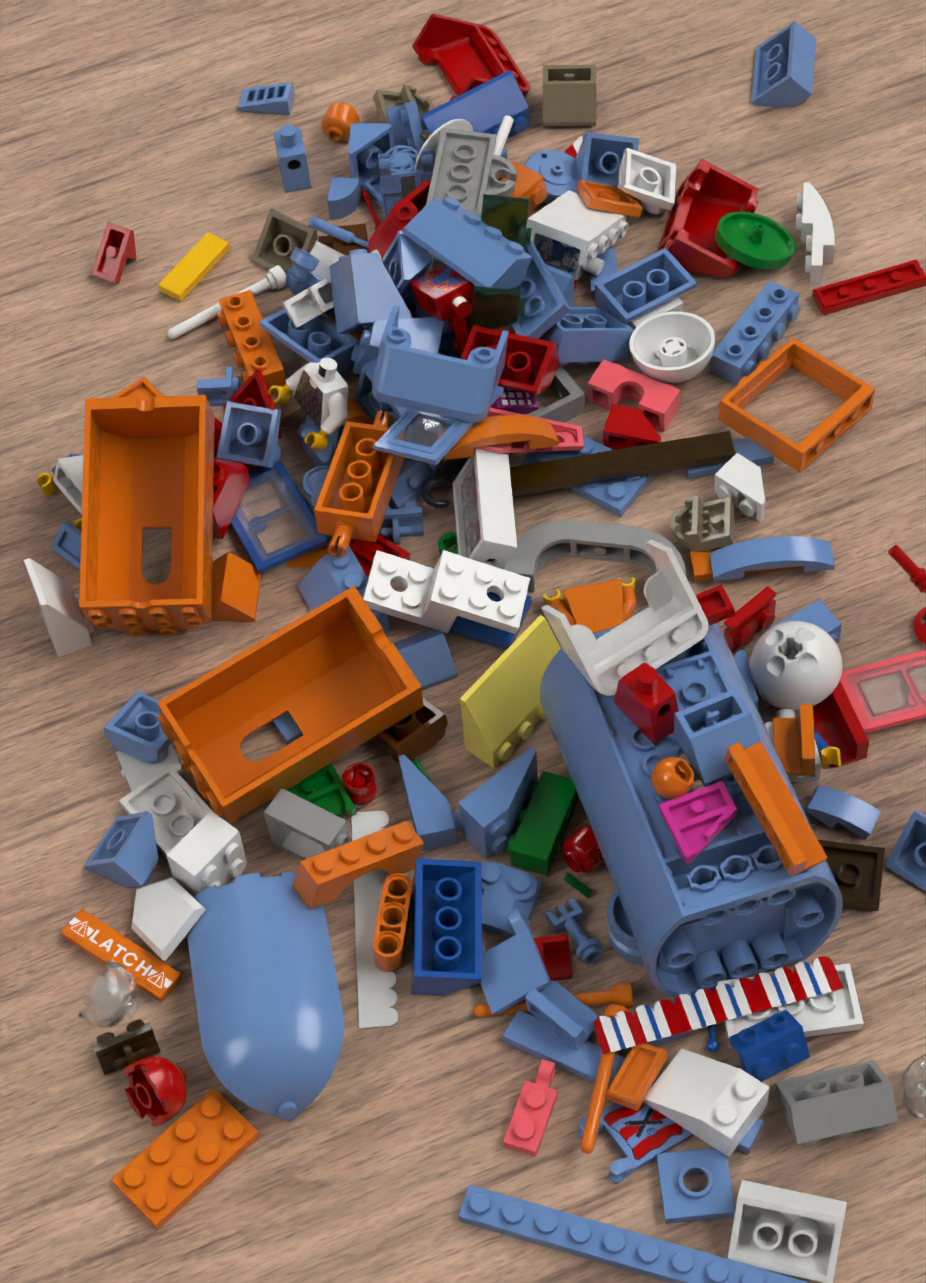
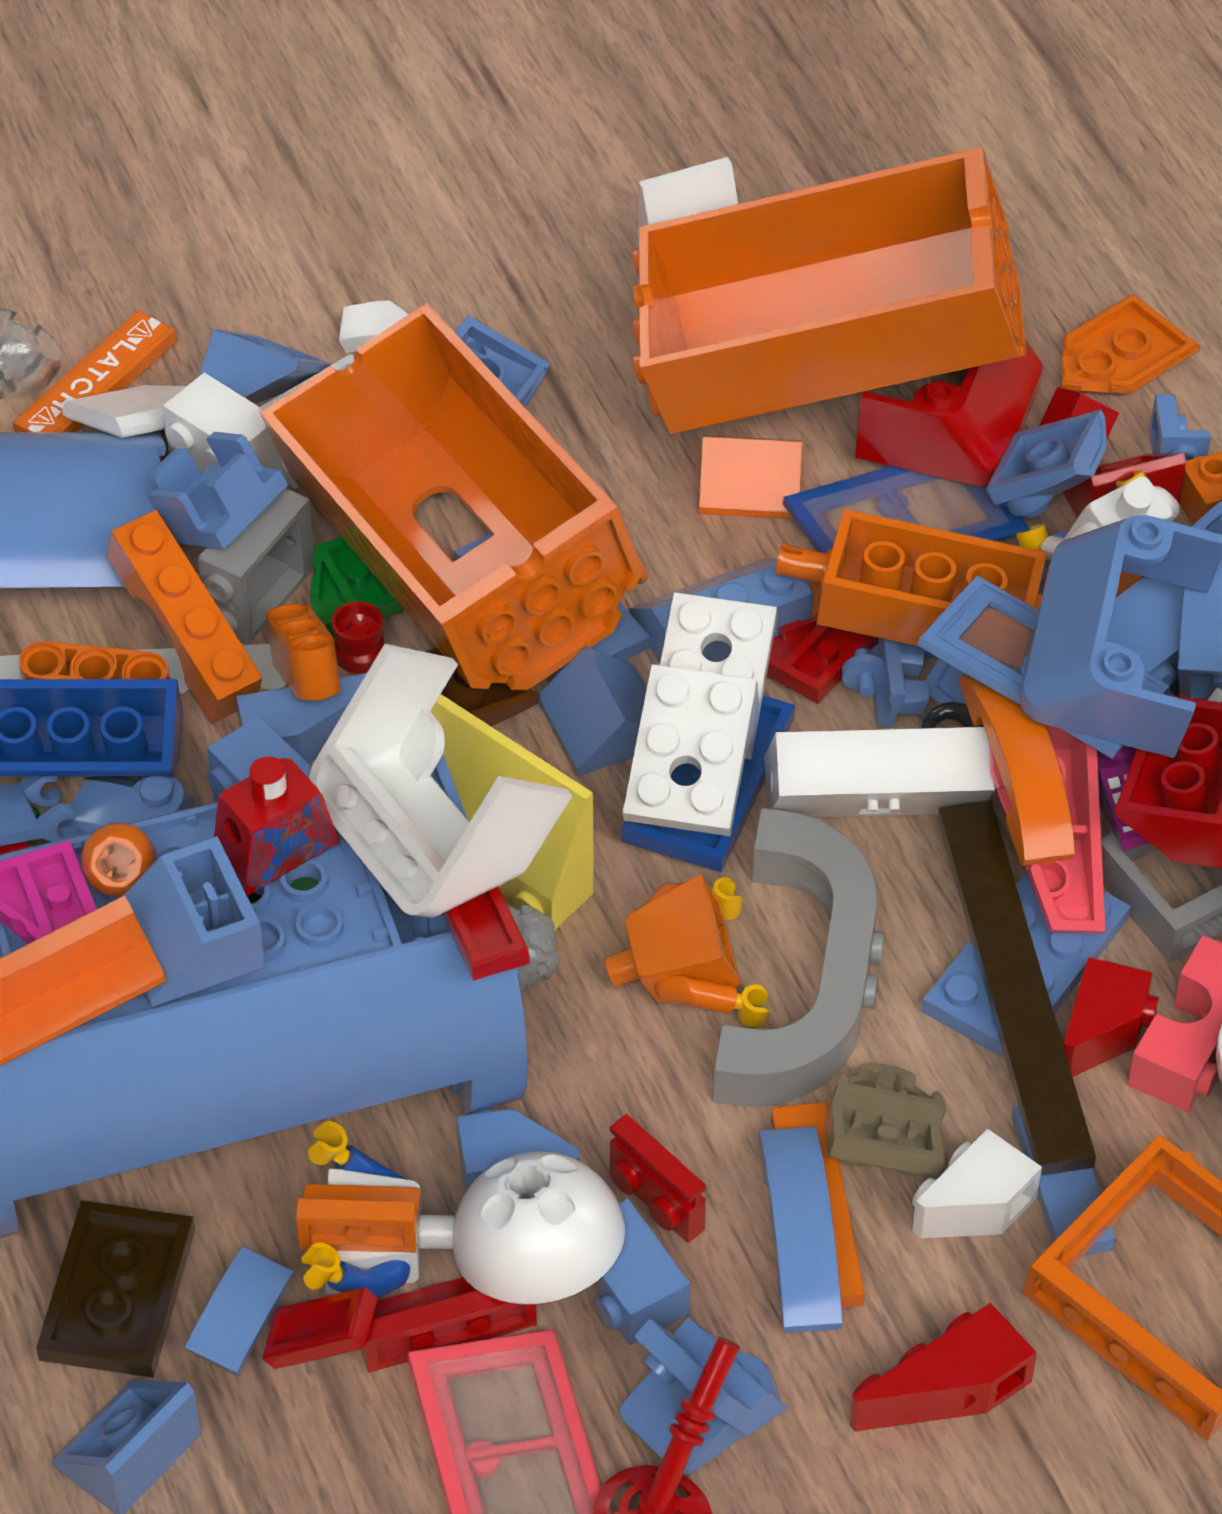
camera: 85 degrees right, 5 degrees down
(88, 789) = (365, 321): none -> white slope
(281, 835) = (219, 502): none -> medium blue panel
(388, 798) = (303, 652): none -> orange beam
(851, 495) = (956, 1375): none -> red slope
(857, 766) = (320, 1328): none -> red tile
(880, 600) = (677, 1360): none -> medium blue piece

